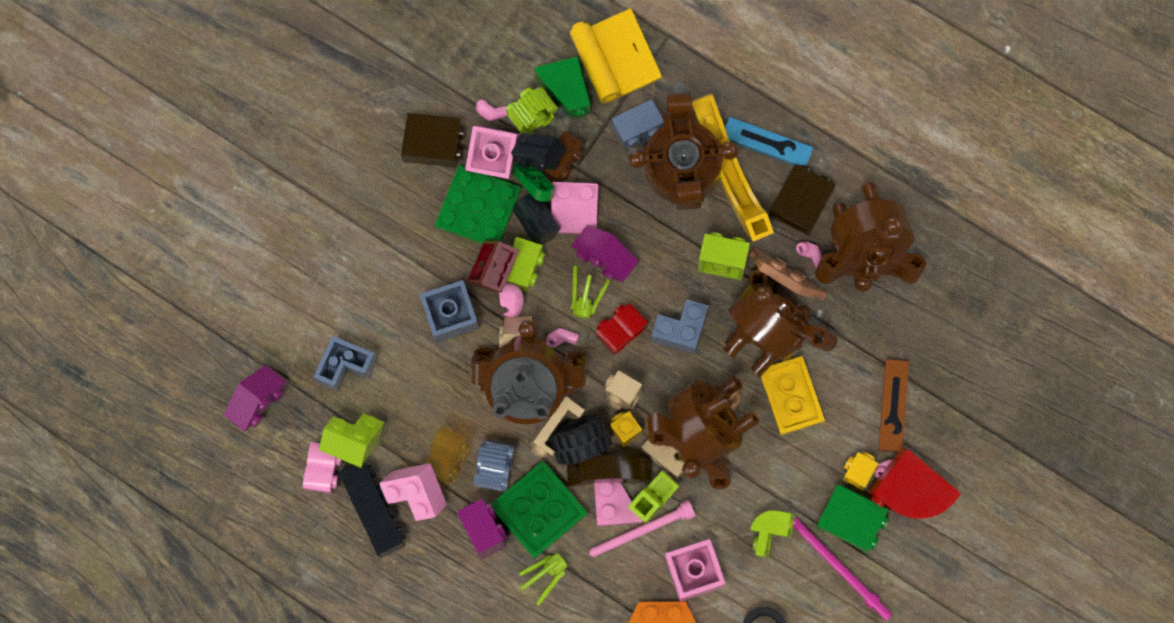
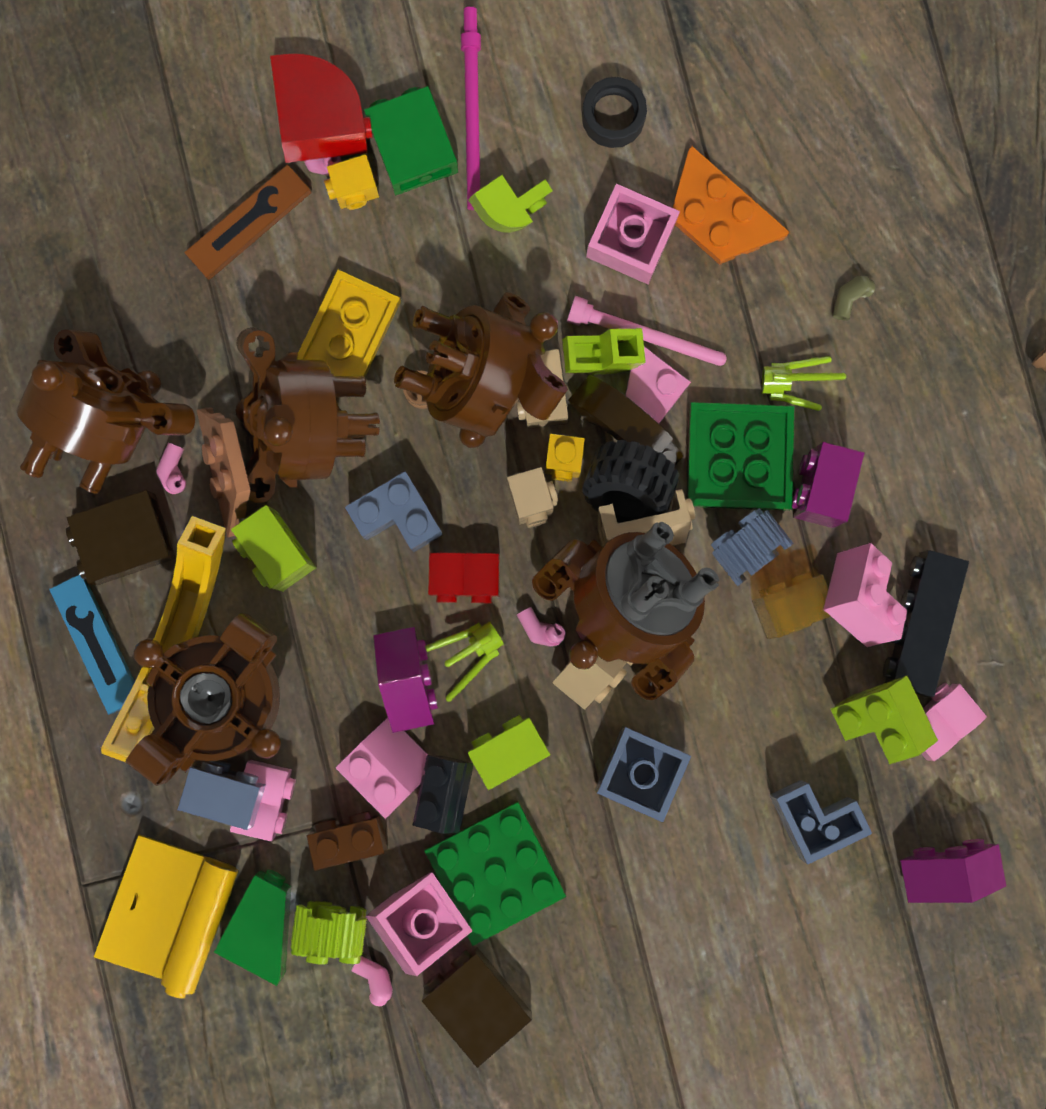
camera: 145 degrees left, 10 degrees up
(497, 264) = (535, 787): dark red window -> none
(512, 299) = (559, 722): bright pink hair -> none
(534, 182) = (414, 833): green beam -> none
(538, 151) = (369, 870): black brick -> none
(617, 154) = (278, 788): none -> bright pink brick

